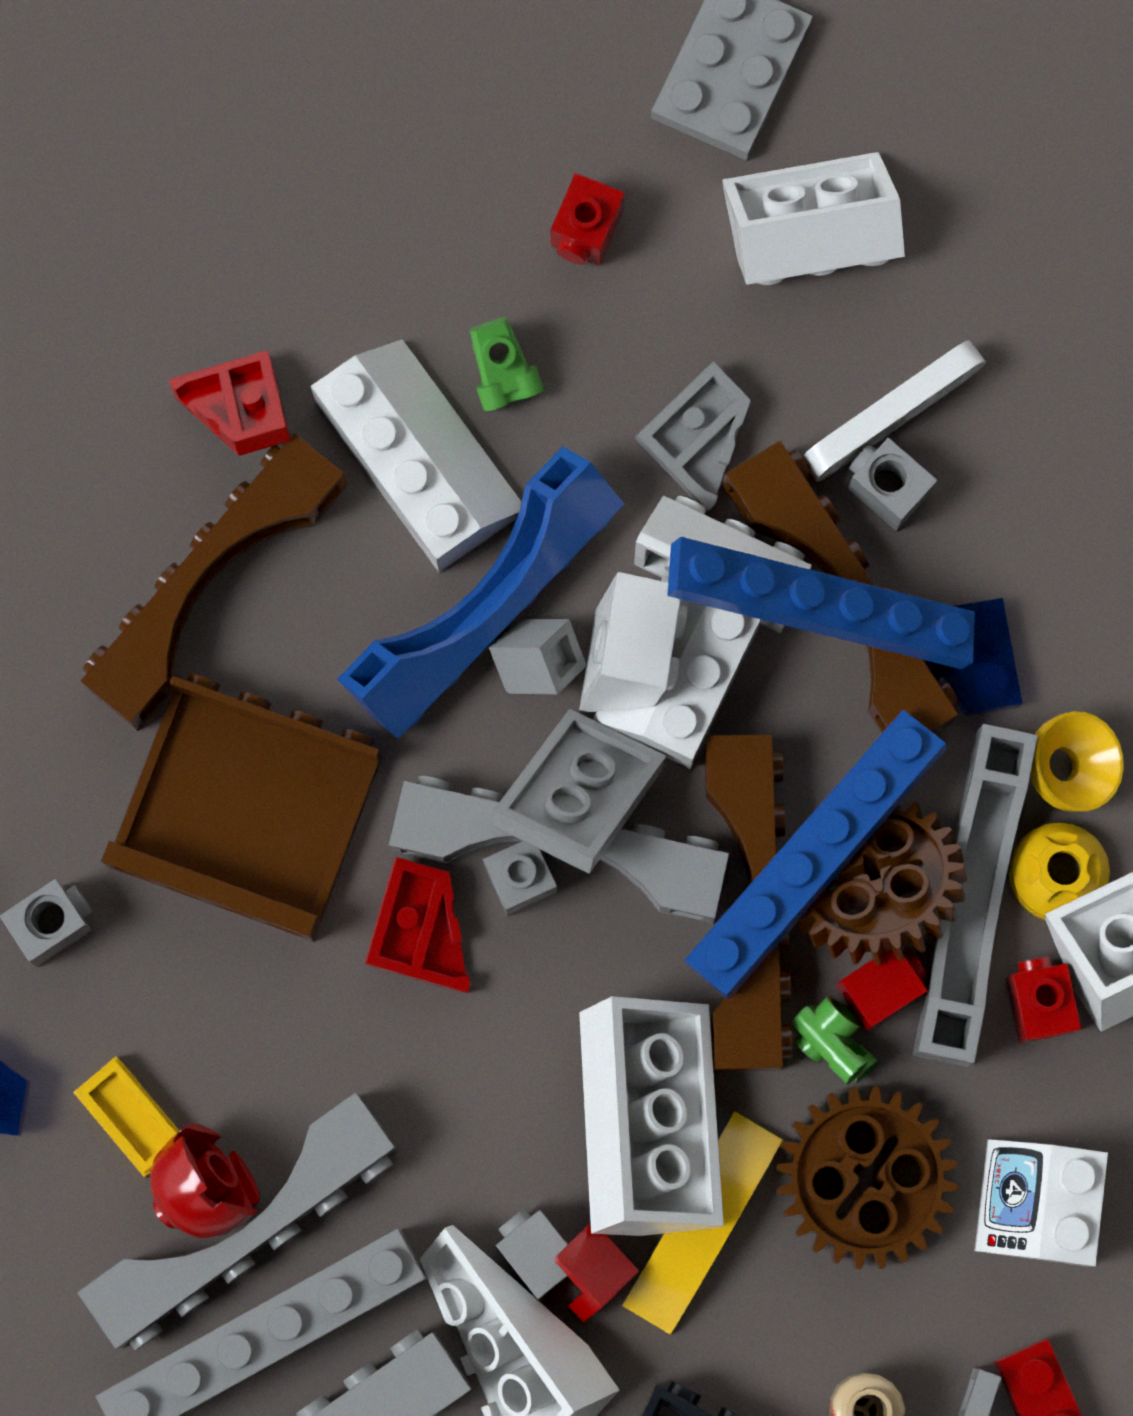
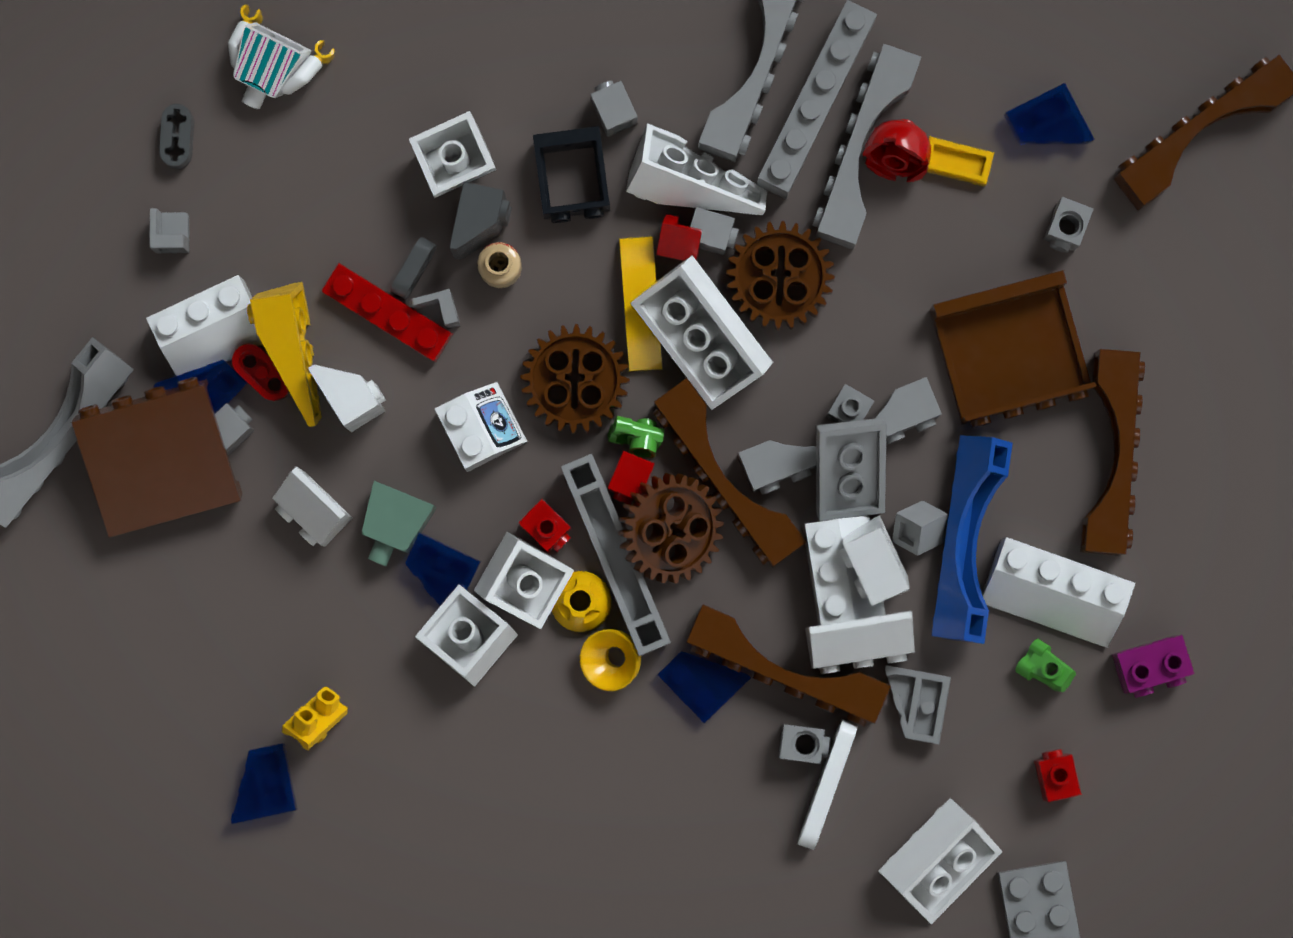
camera: 145 degrees right, 5 degrees up
(237, 402) = (1166, 552): red wing -> none
(361, 274) = (1153, 665): none -> magenta brick
(418, 928) = (882, 349): red wing -> none
(446, 1094) = (809, 277): none -> reddish brown gear
(815, 854) = (709, 518): blue plate -> none
(820, 603) = (795, 644): blue plate -> none

